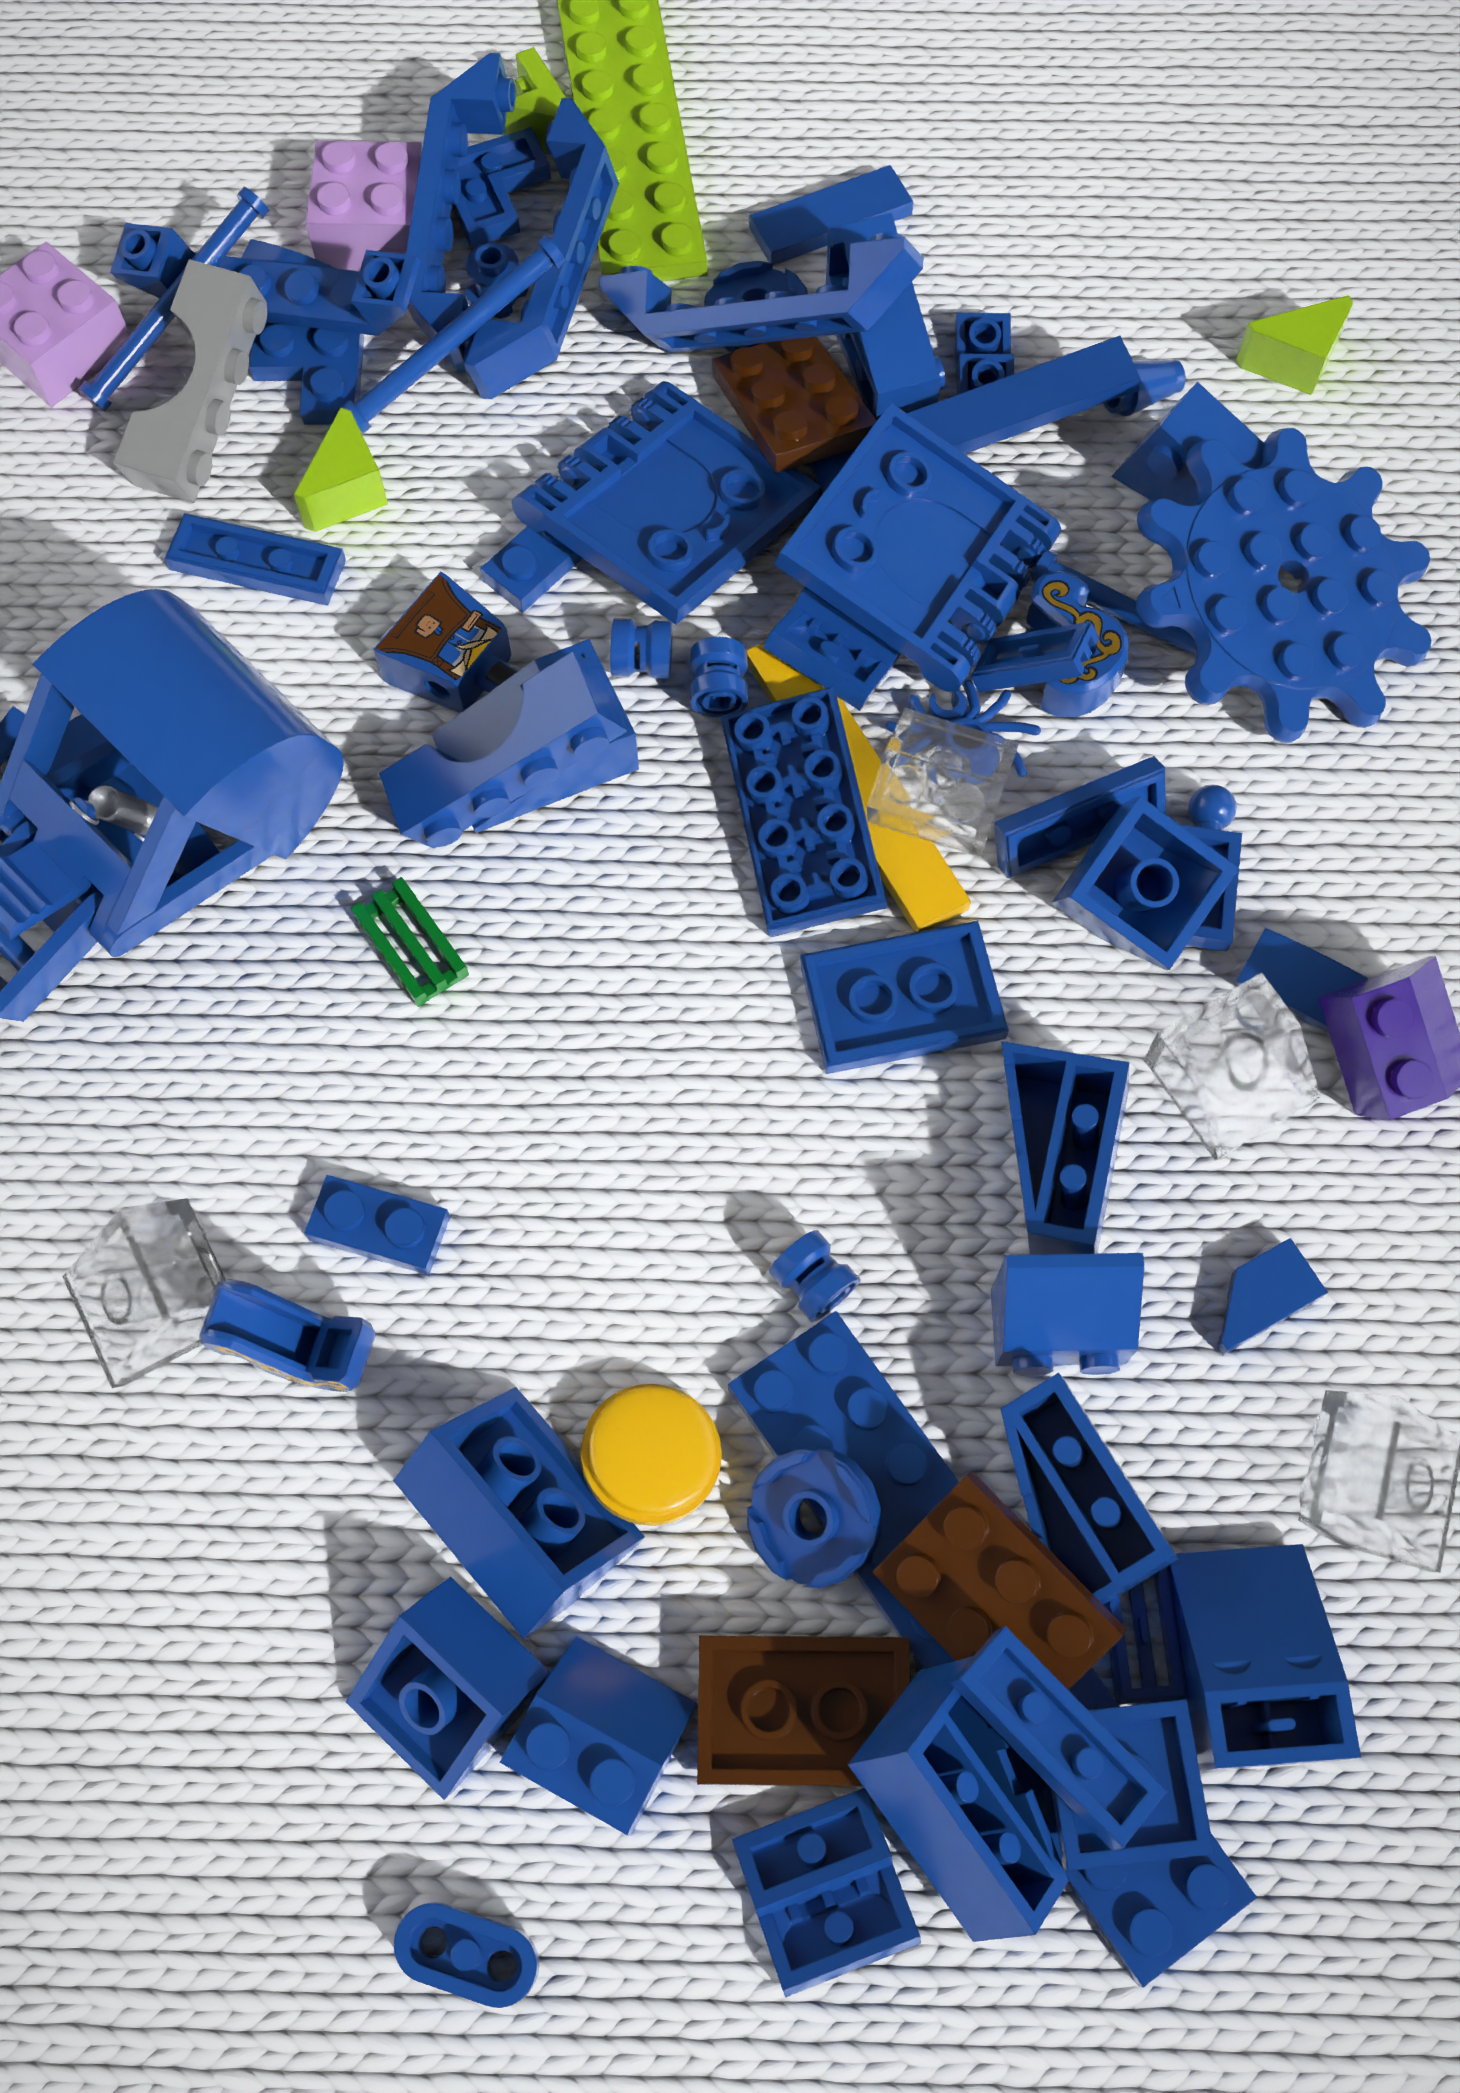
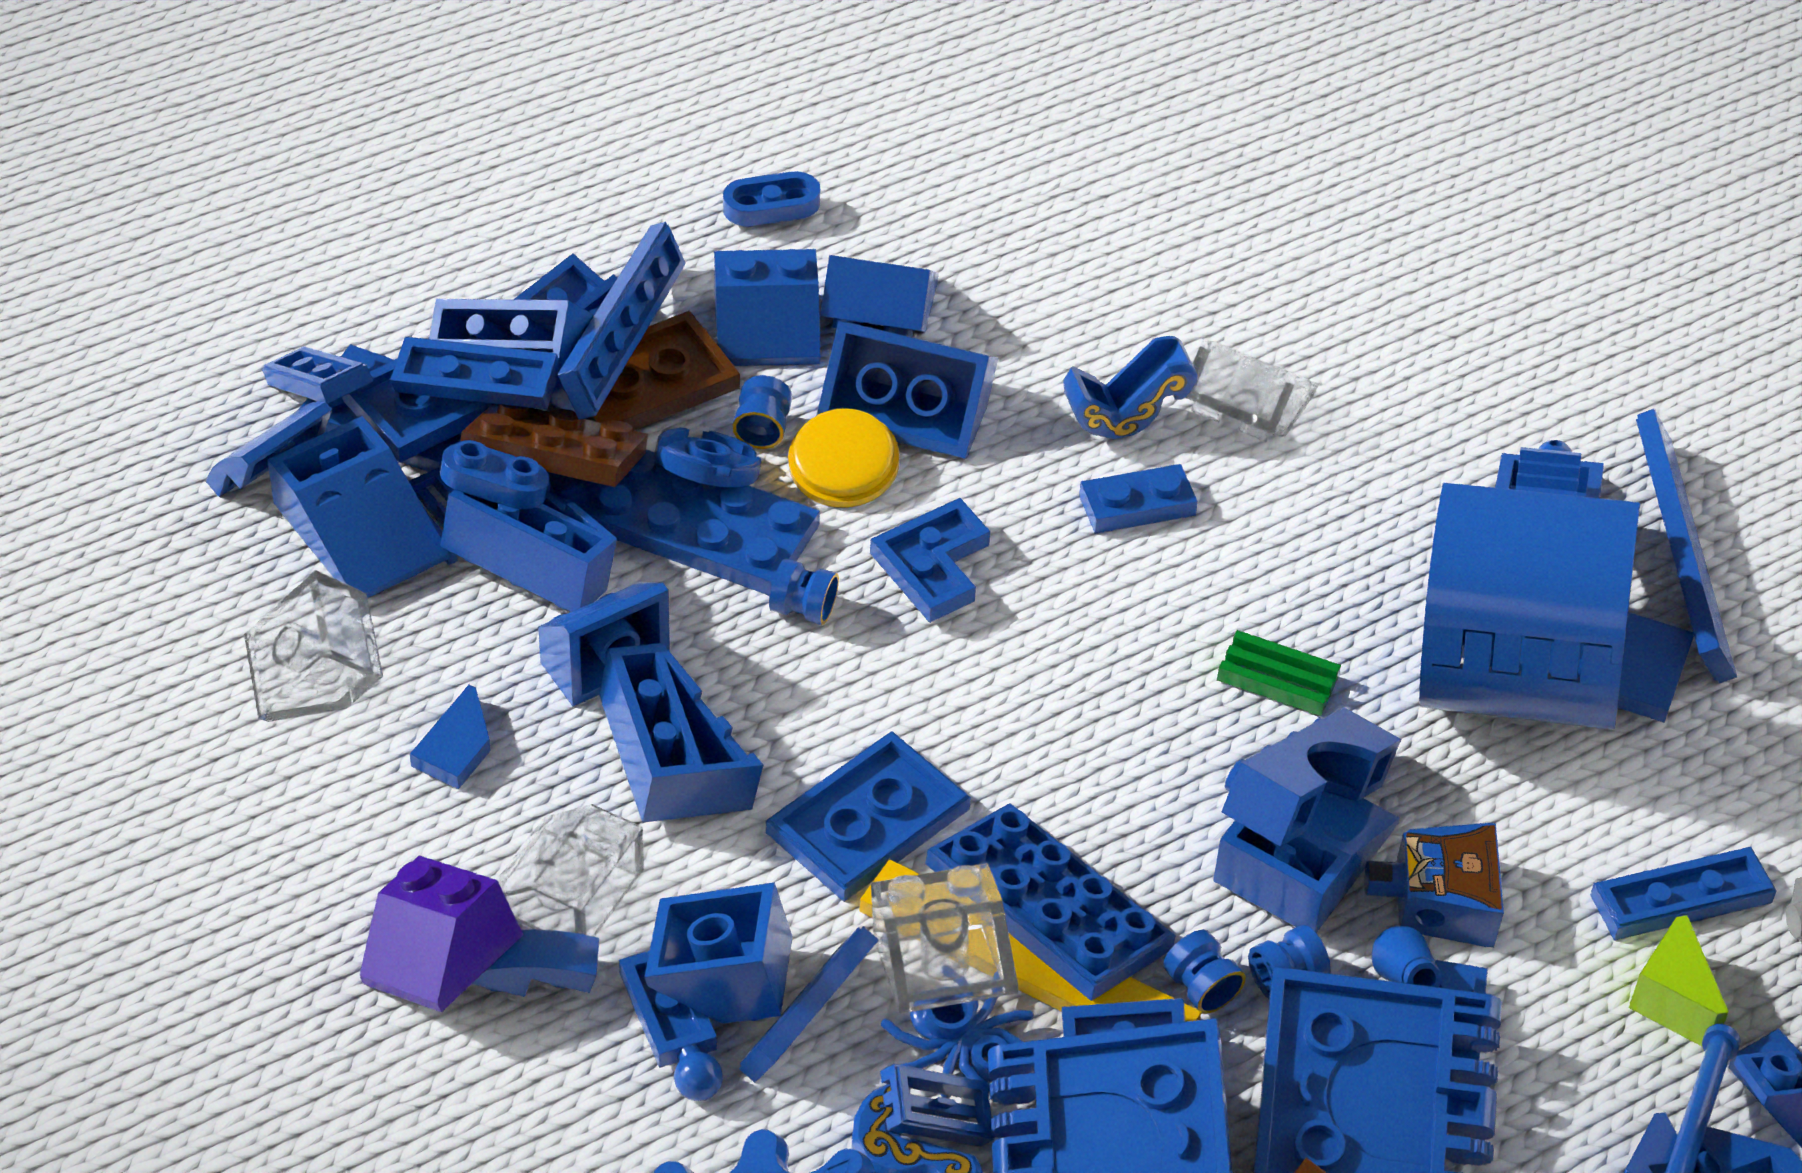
camera: 145 degrees right, 20 degrees down
(548, 588) = (1405, 957): none -> blue cone
(660, 1267) = (924, 554): none -> blue plate
(706, 1564) = (762, 411): none -> blue wheel
(804, 1775) = (621, 320): none -> blue tile
(1106, 1557) = (494, 475): none -> blue plate
(1229, 1910) = (316, 374): none -> blue tile
(1335, 1813) = (251, 459): none -> blue slope

